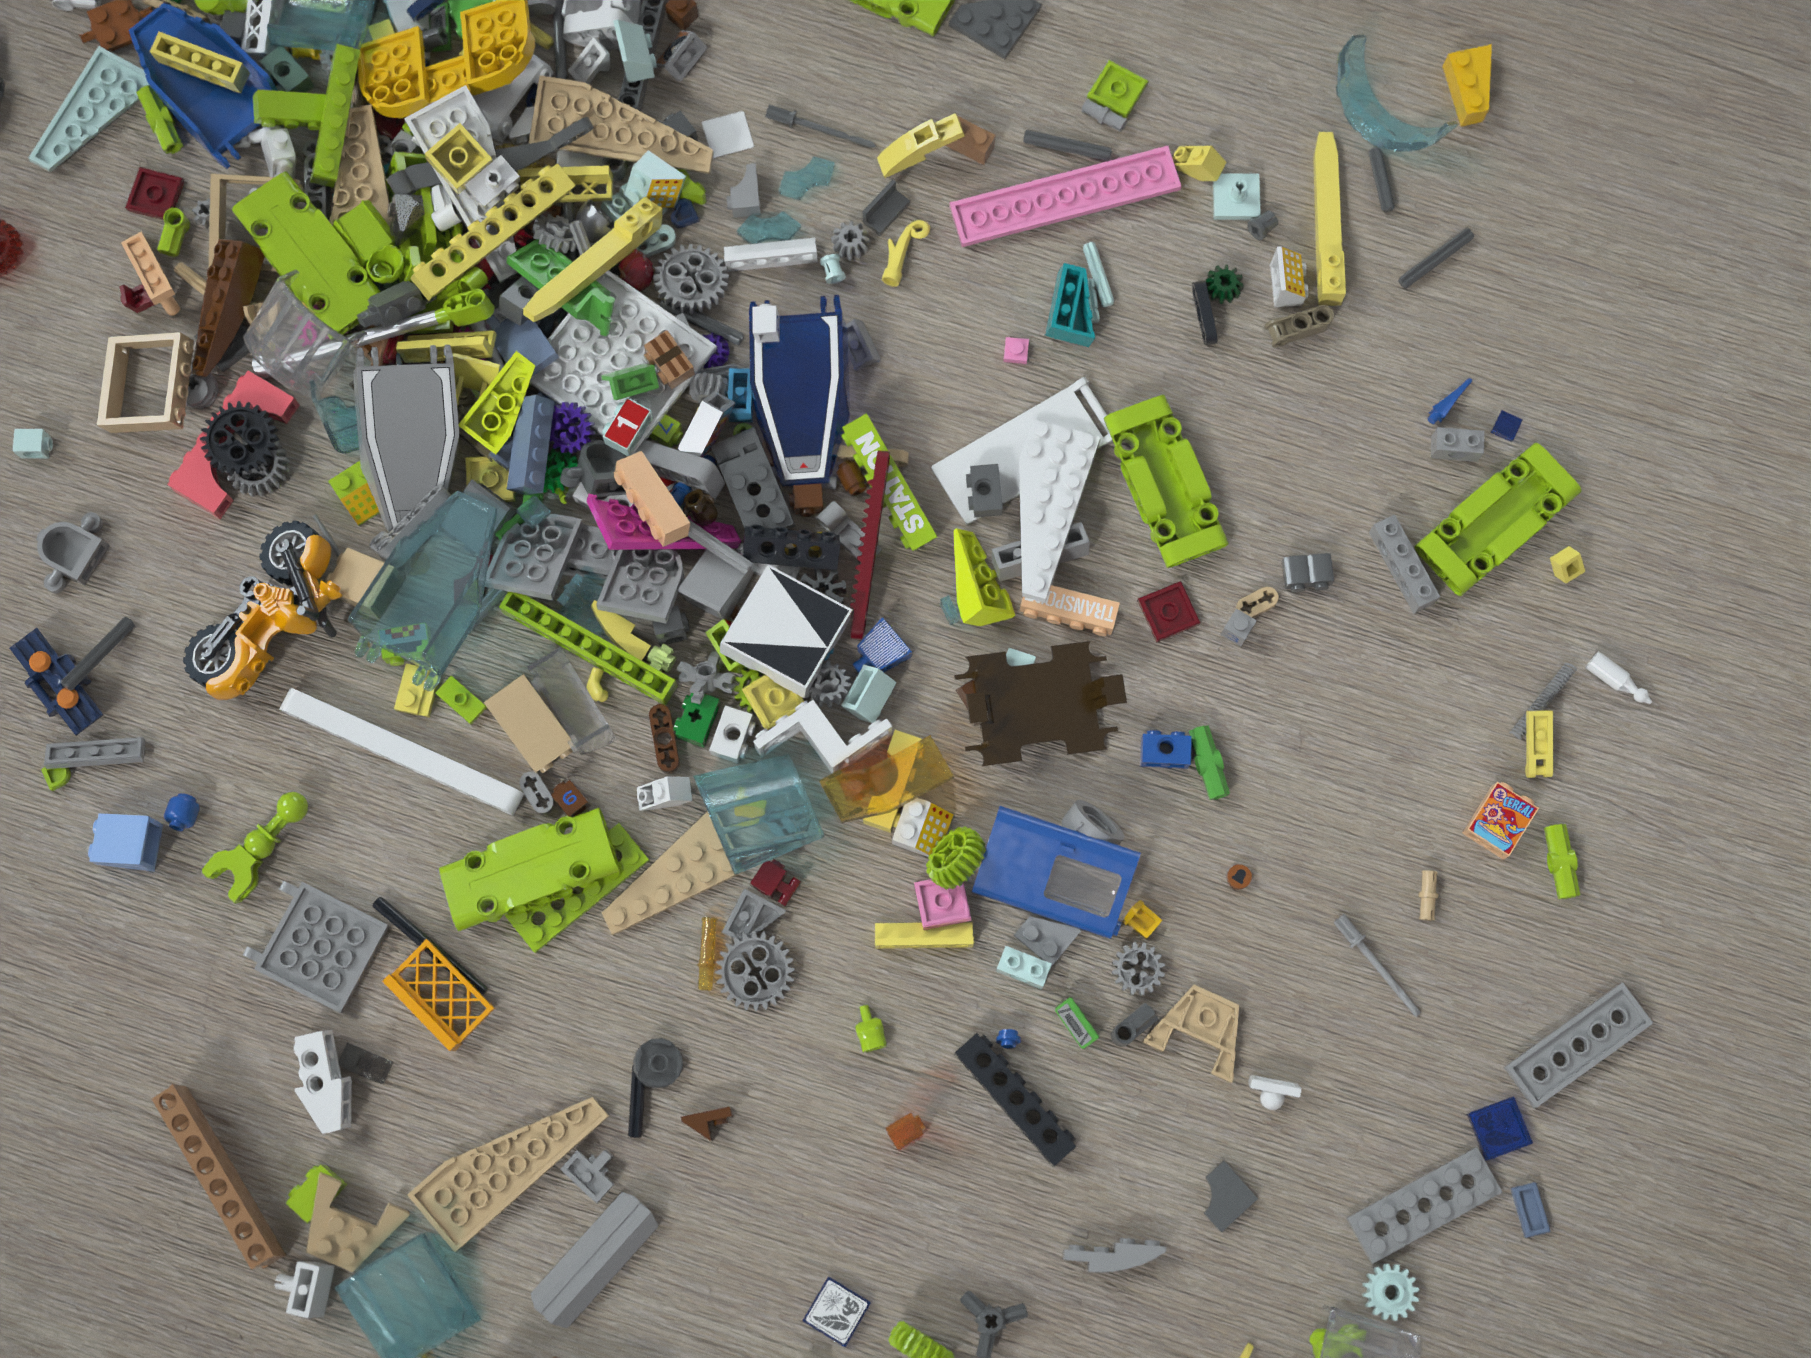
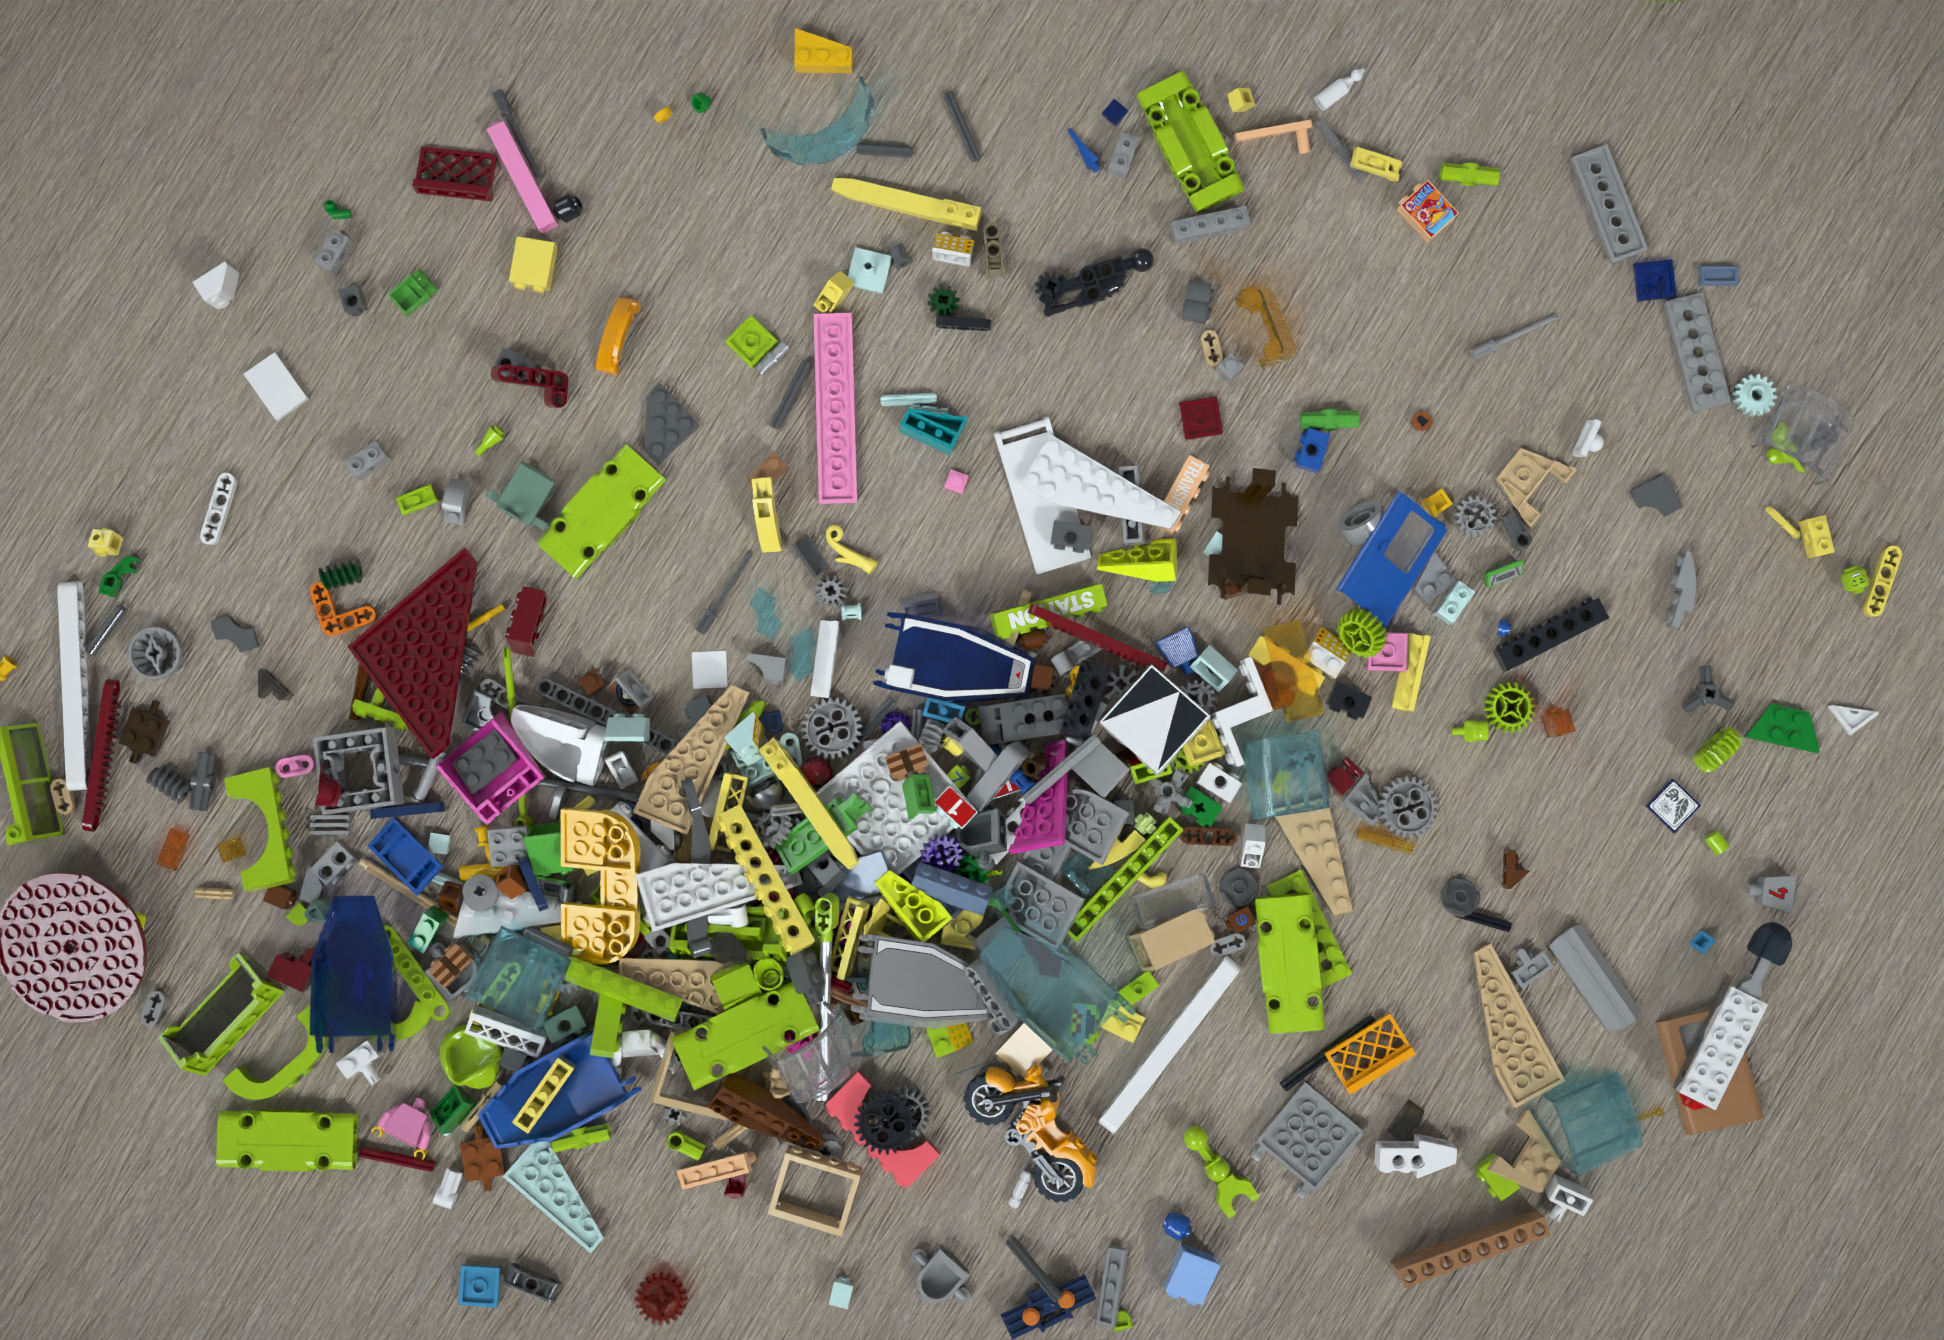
camera: 75 degrees left, 10 degrees up
(154, 193) = (644, 1154): dark red tile -> none
(191, 618) = (1020, 1189): none -> white axle
(373, 26) = (548, 941): none -> dark grey axle
(458, 158) = (701, 894): light yellow brick -> none
(493, 183) = (725, 870): white brick -> none
(610, 790) = (1238, 887): none -> dark grey tile
(651, 498) = (1025, 801): light nougat brick -> none
(873, 881) = (1359, 705): none -> black brick
(928, 1082) = (1522, 697): none -> lime gear
(1165, 481) = (1098, 392): lime panel -> none
(1286, 679) = (1281, 346): none -> clear yellow windscreen
(1295, 461) = (1105, 286): none -> black arm
(1428, 895) = (1470, 282): tan pin -> none
(1555, 640) = (1298, 127): none -> light nougat piece

